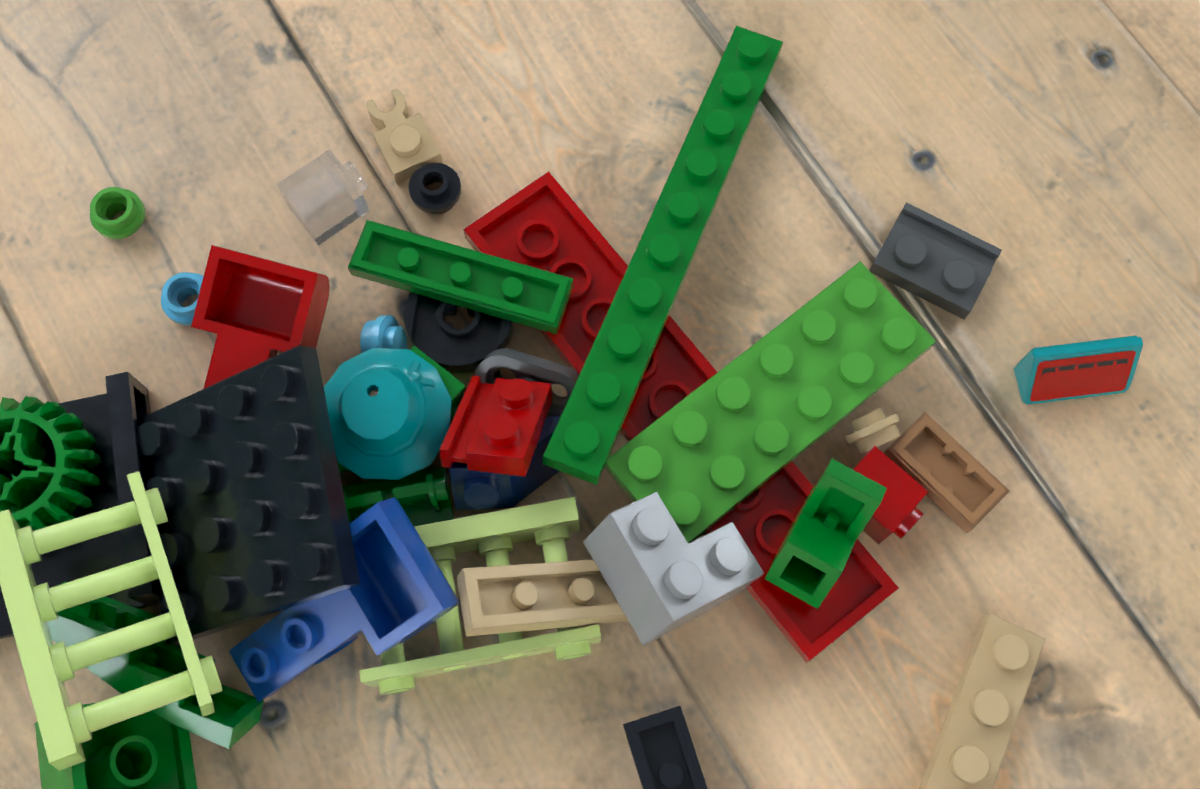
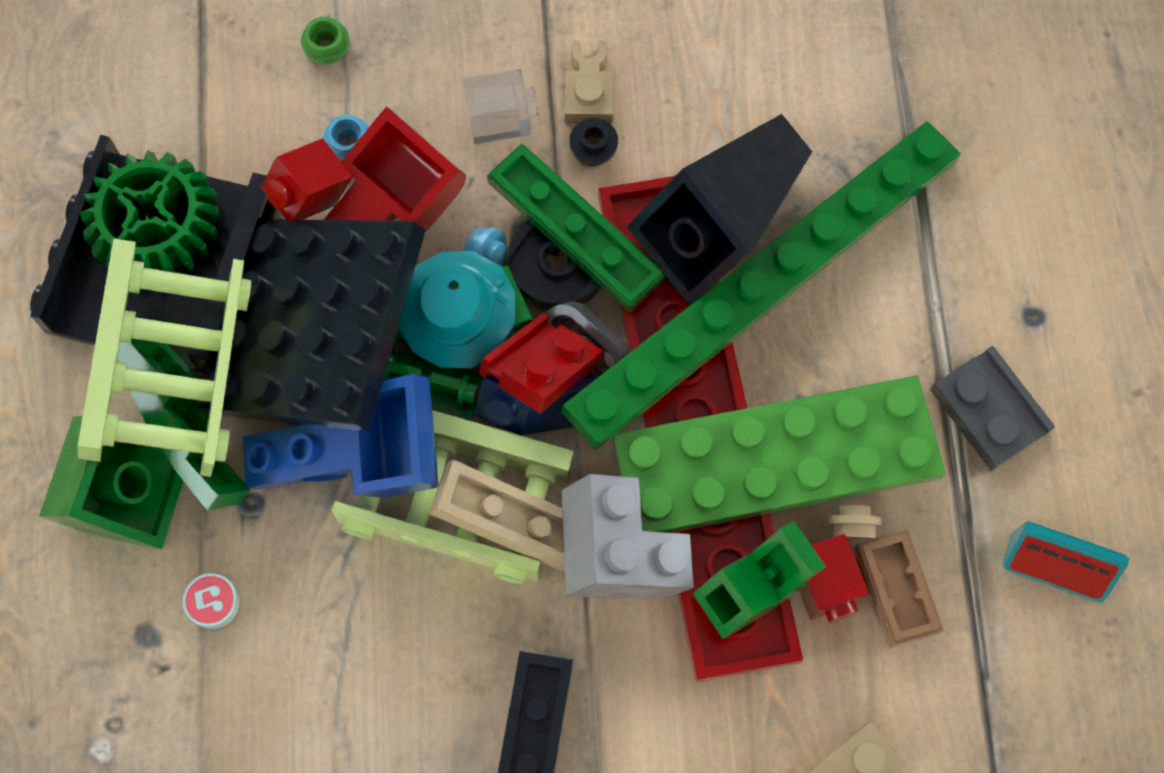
camera: 25 degrees right, 0 degrees up
(165, 358) = (306, 181): none -> red brick
(594, 193) = (720, 206): none -> black slope

